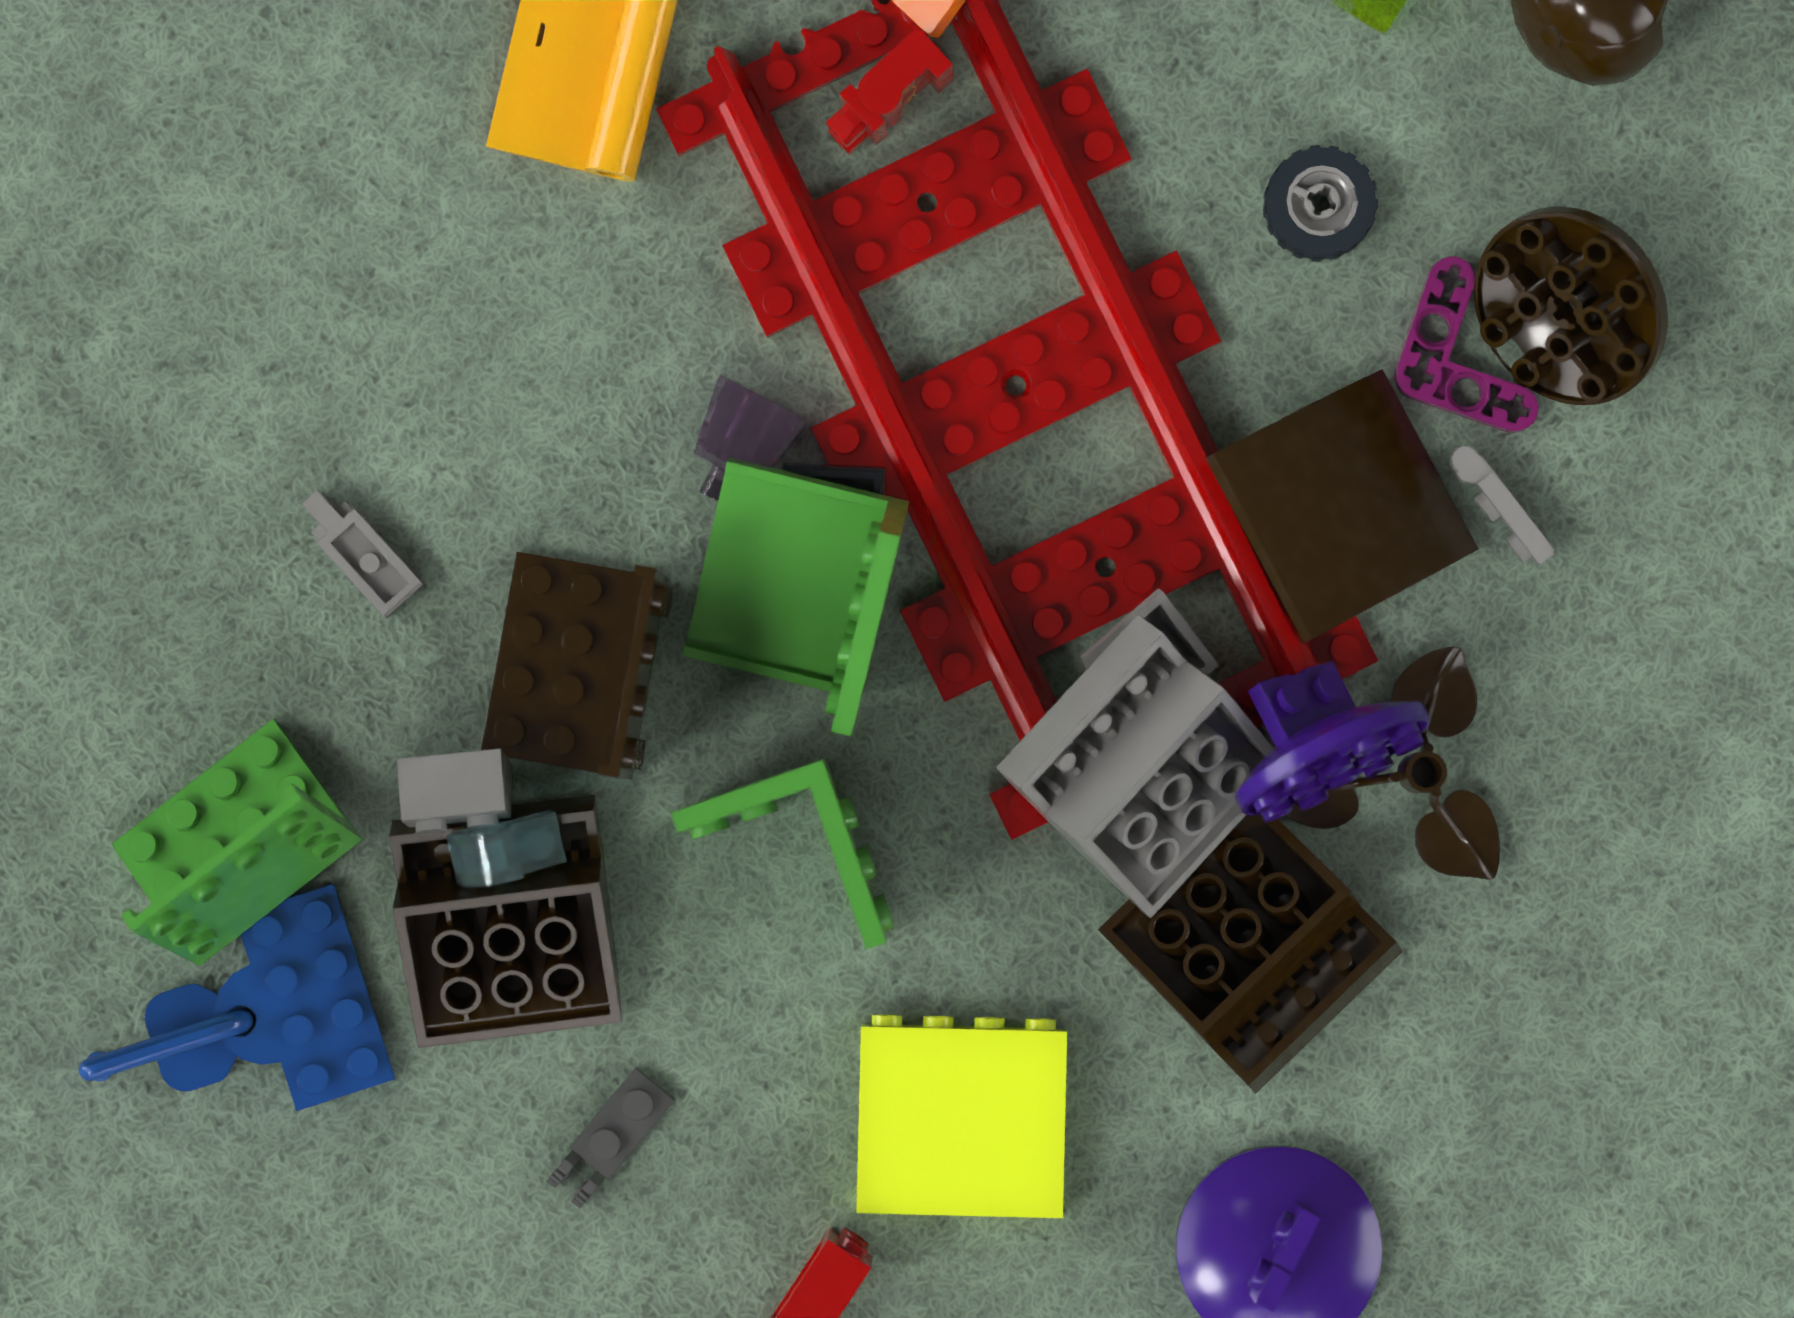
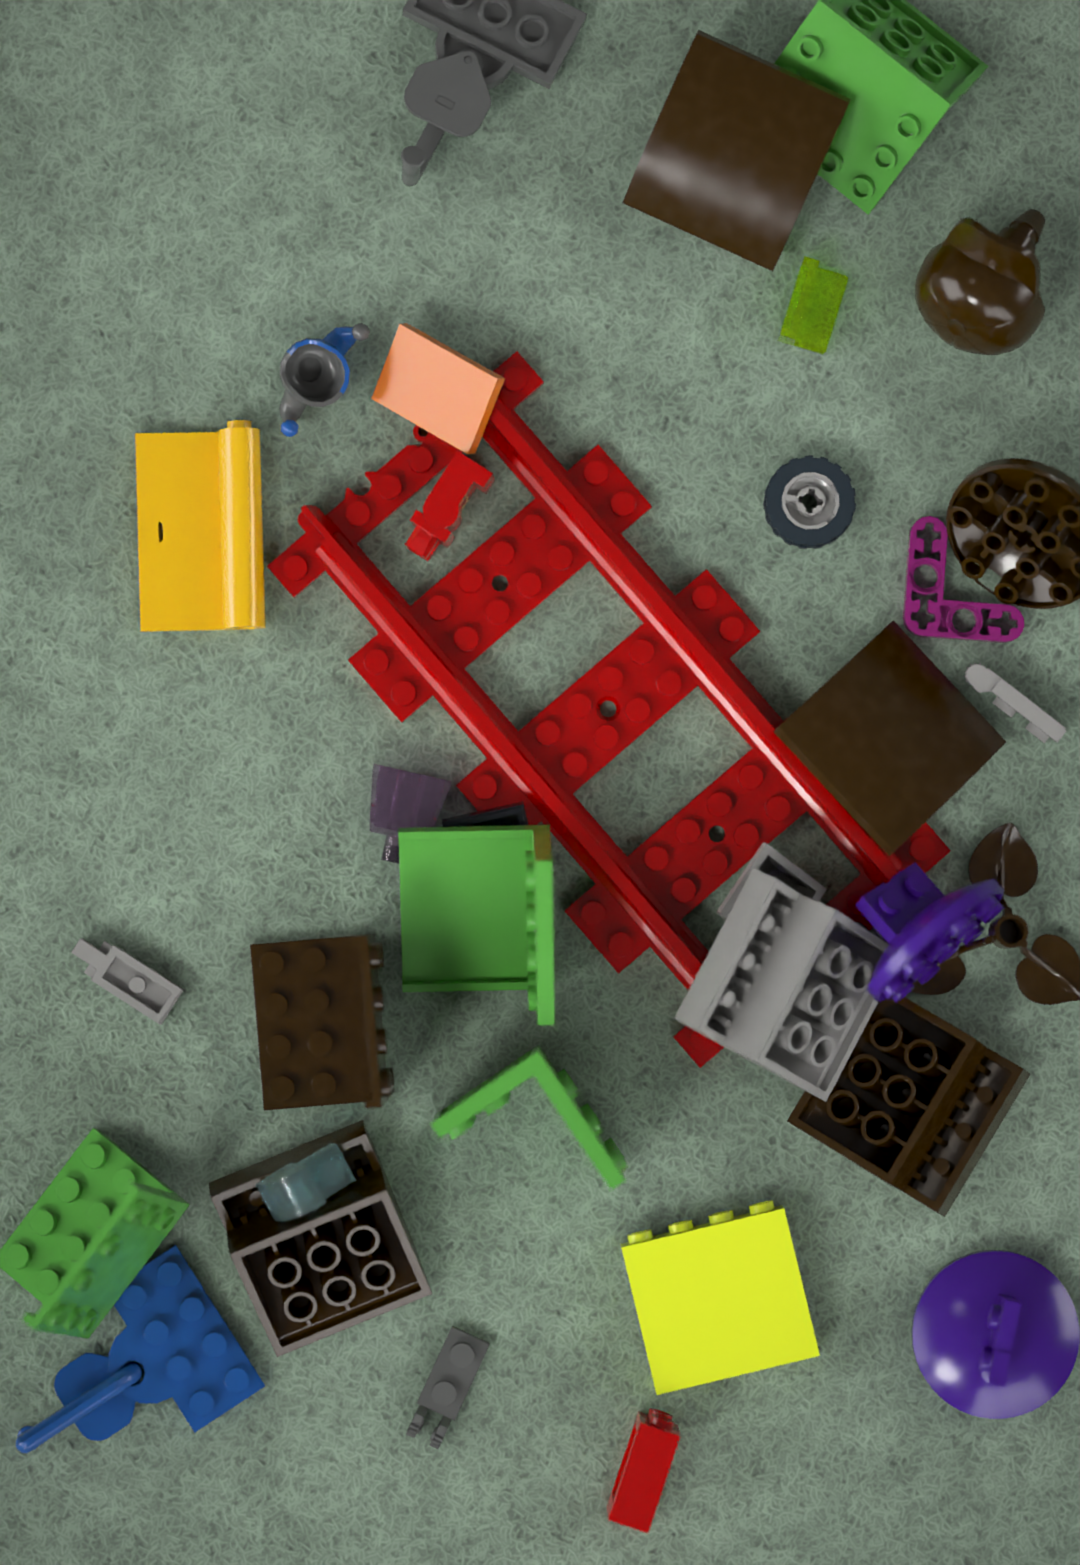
camera: 15 degrees left, 0 degrees up
(455, 789) = (252, 1147): light grey slope -> none

